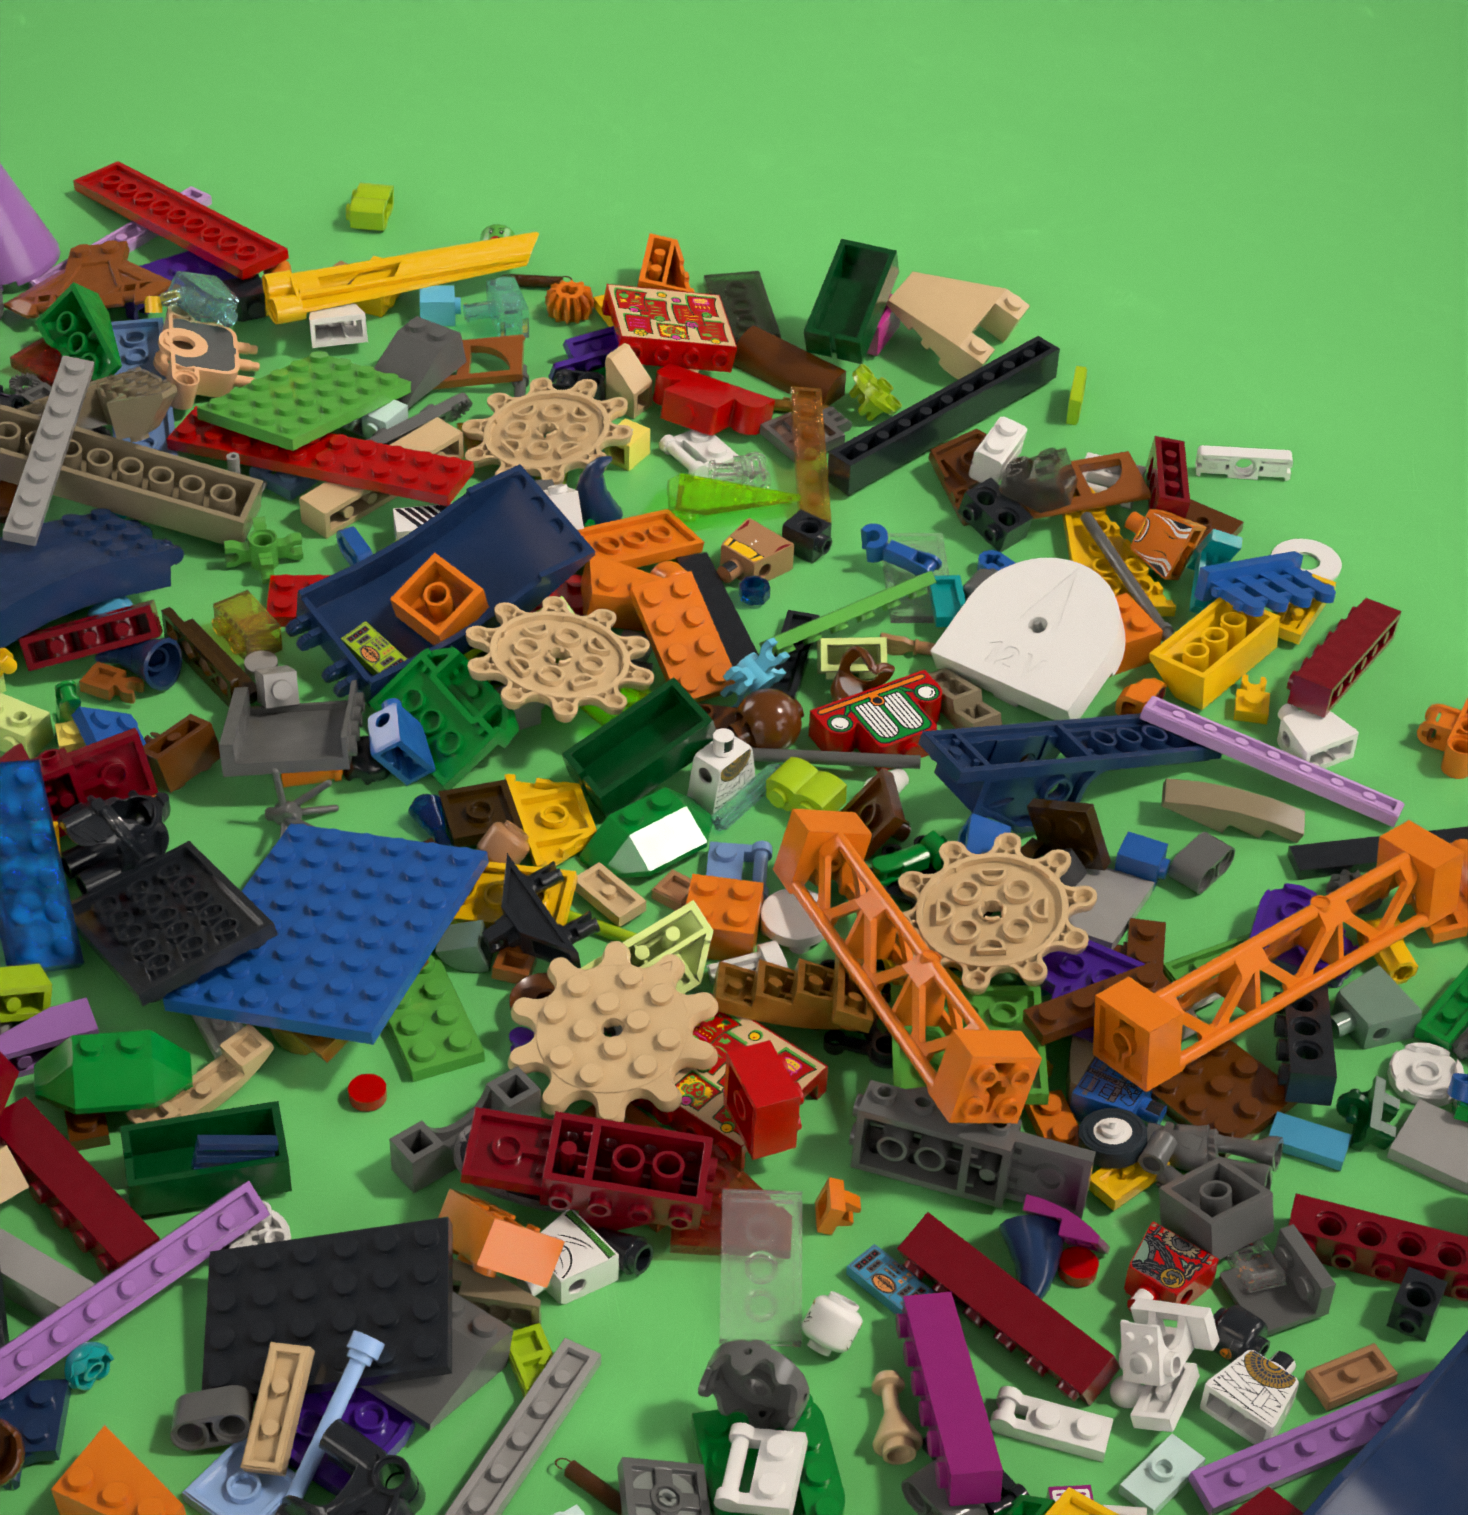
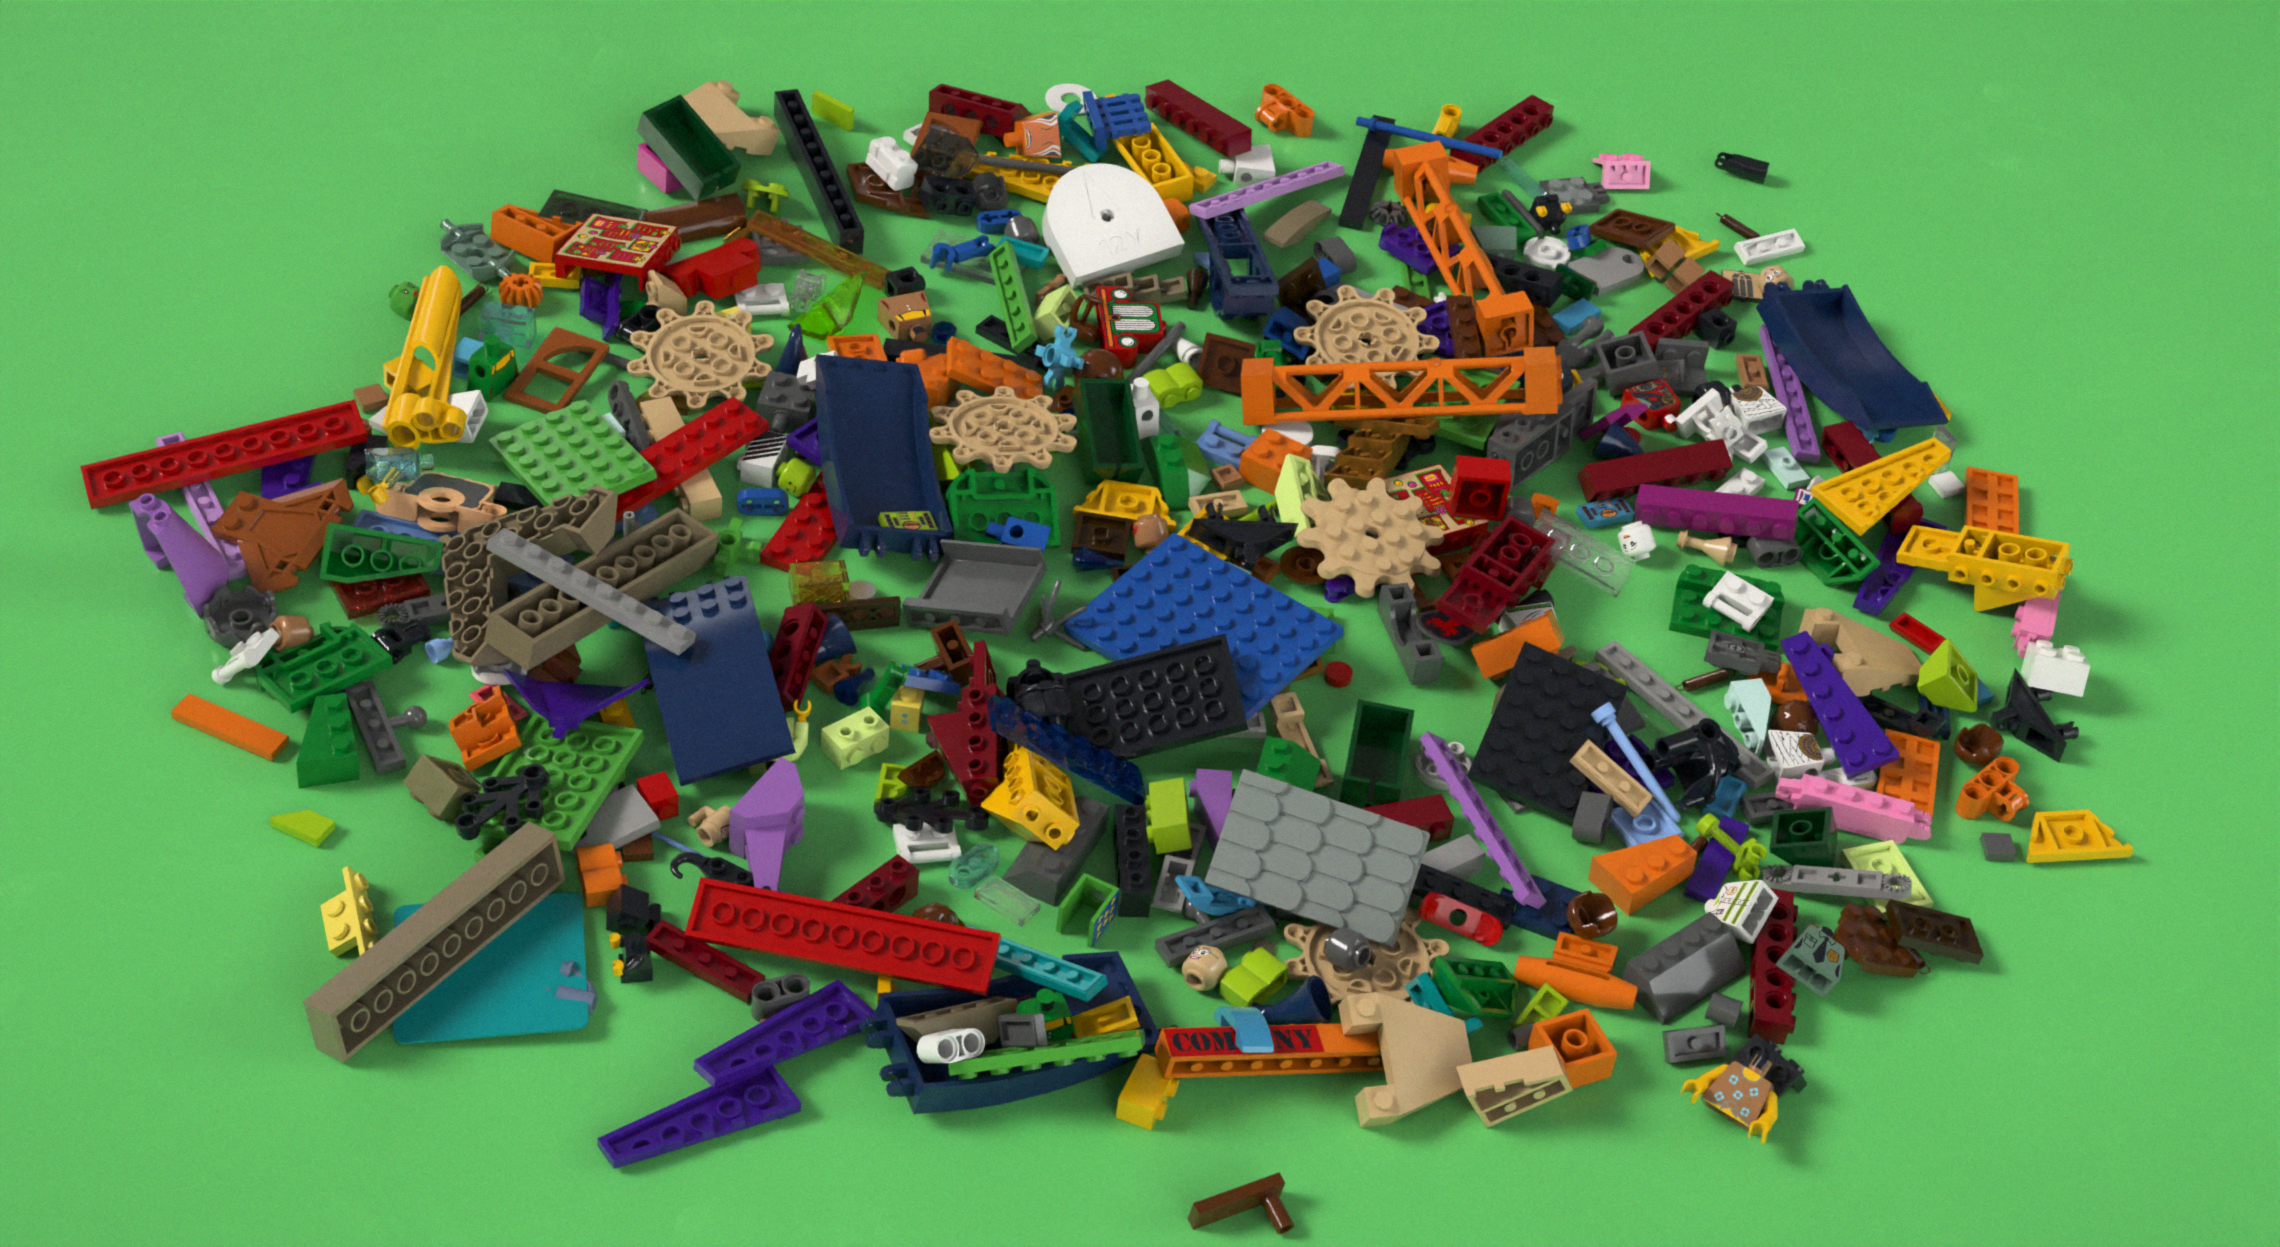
camera: 70 degrees left, 0 degrees up
(86, 1364) = (1528, 857): teal plate -> none
(97, 699) = (850, 689): none -> clear blue cone
(233, 1145) = (1396, 733): dark blue tile -> none
(276, 686) = (910, 582): light grey brick -> none
(370, 206) = (288, 347): lime brick -> none
(423, 355) = (546, 382): dark grey slope -> none
(427, 305) = (492, 367): none -> green torso
(439, 600) = (899, 464): orange brick -> none
(611, 257) = (475, 251): none -> sand green plate
(756, 1382) = (1695, 571): dark grey plate -> none
(797, 1173) = (1521, 509): none -> dark grey head
(1041, 540) = (990, 192): none -> dark grey hair
(1157, 1152) = (1576, 366): dark grey hinge -> none
(1224, 459) = (964, 71): white piece -> none

